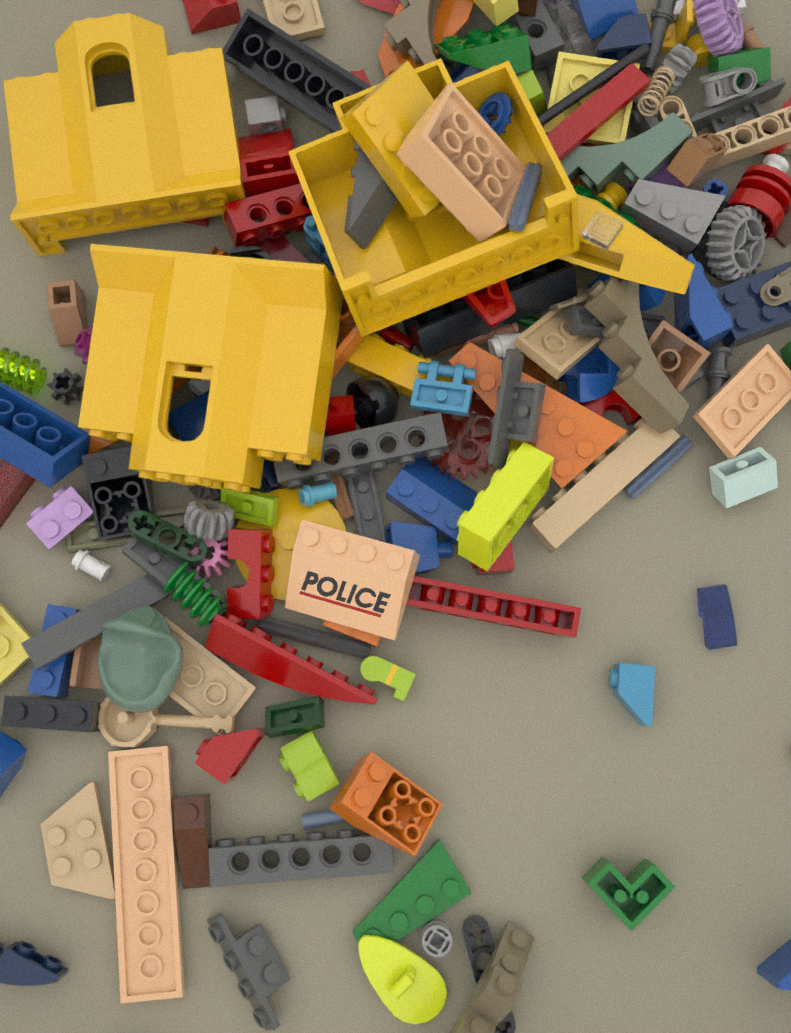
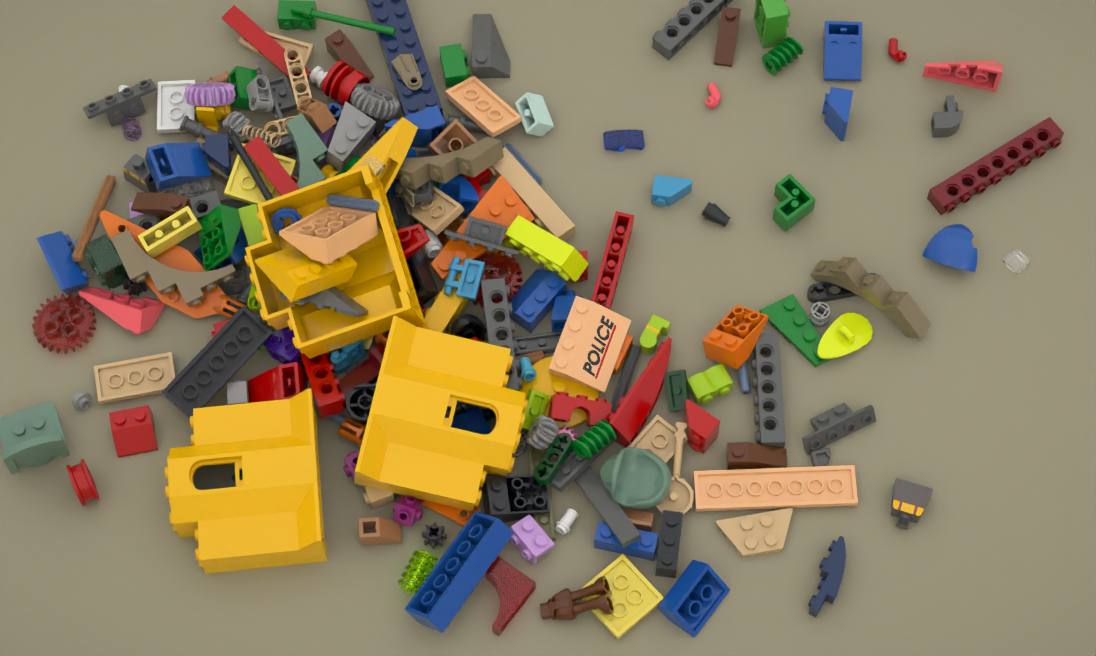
camera: 85 degrees left, 15 degrees down
(199, 941) = (820, 457): none -> dark grey tile
(599, 765) = (715, 214): none -> black cone

